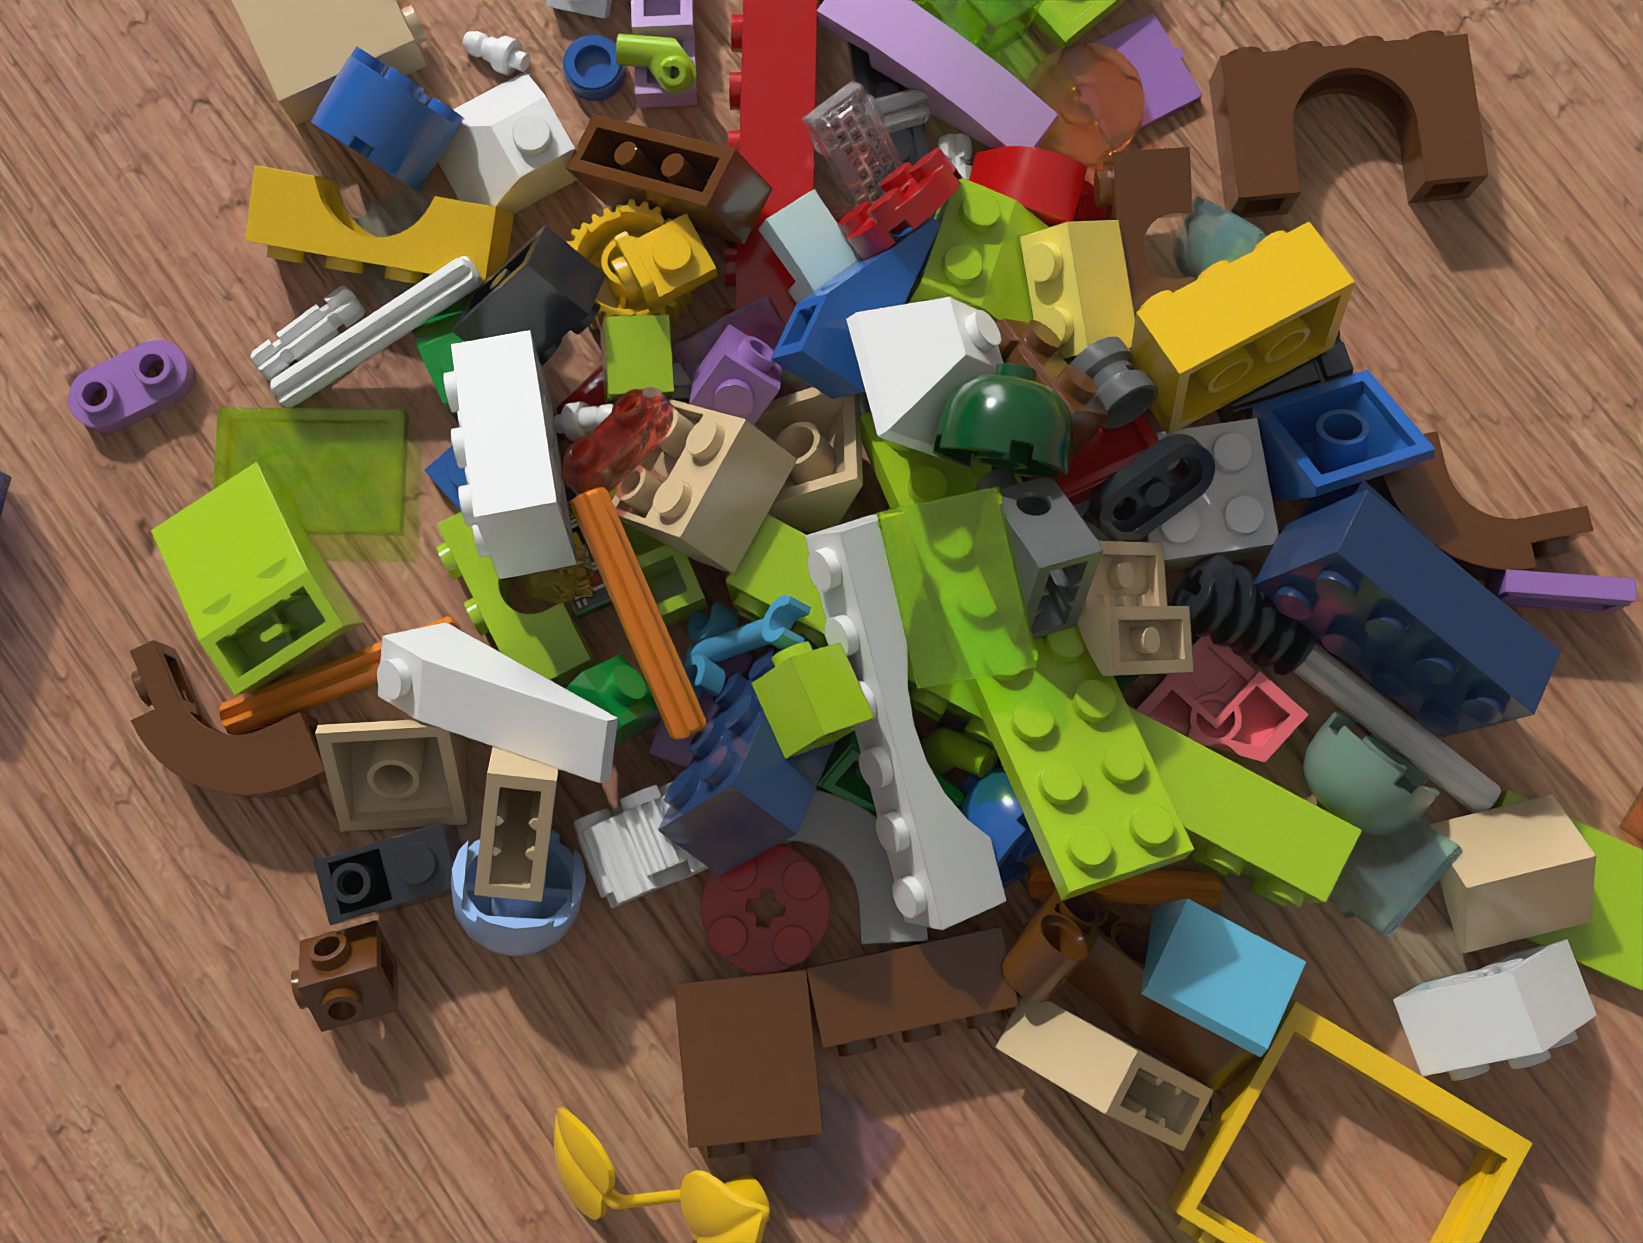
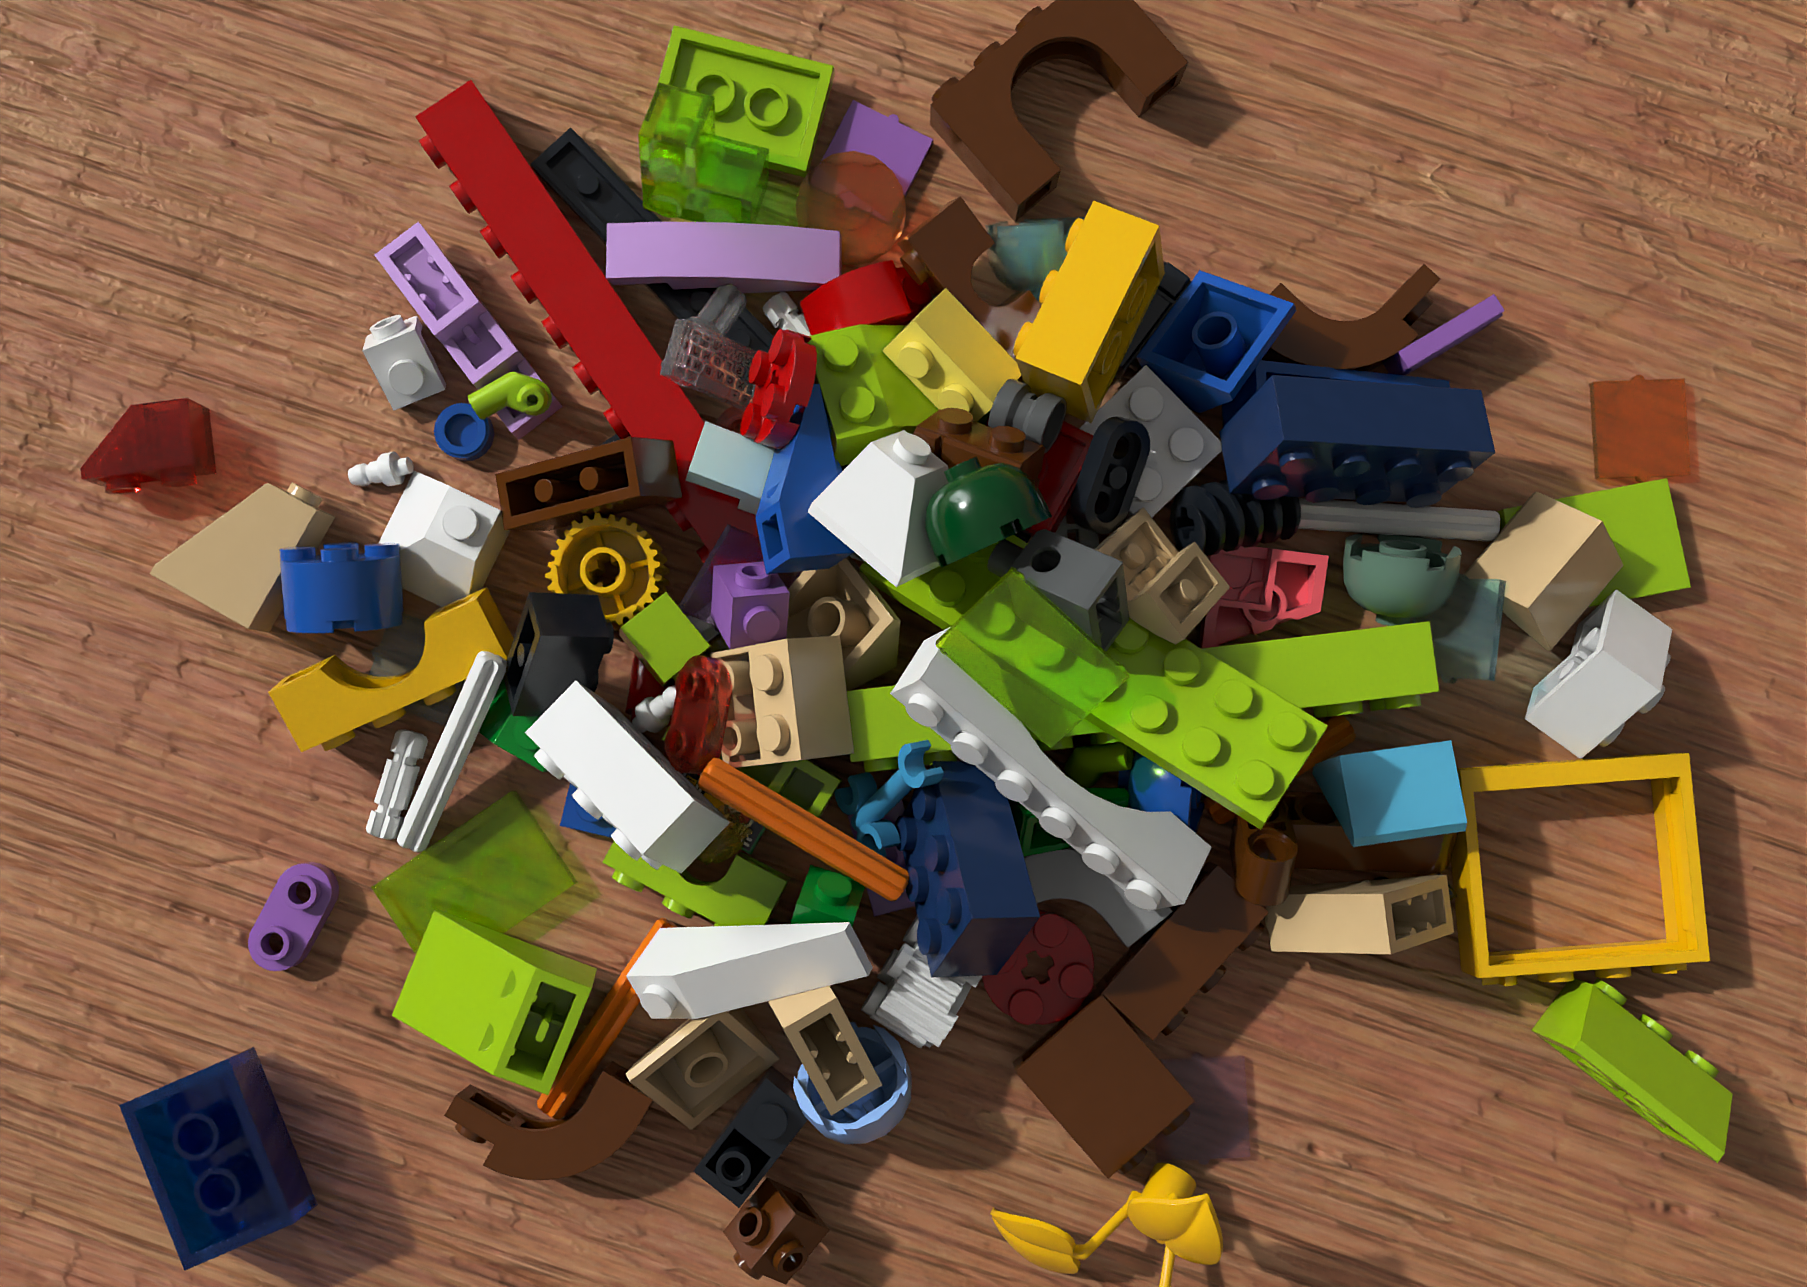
camera: 35 degrees left, 5 degrees up
(663, 262) = (633, 554): yellow bracket -> none
(811, 697) = (980, 809): lime brick -> none

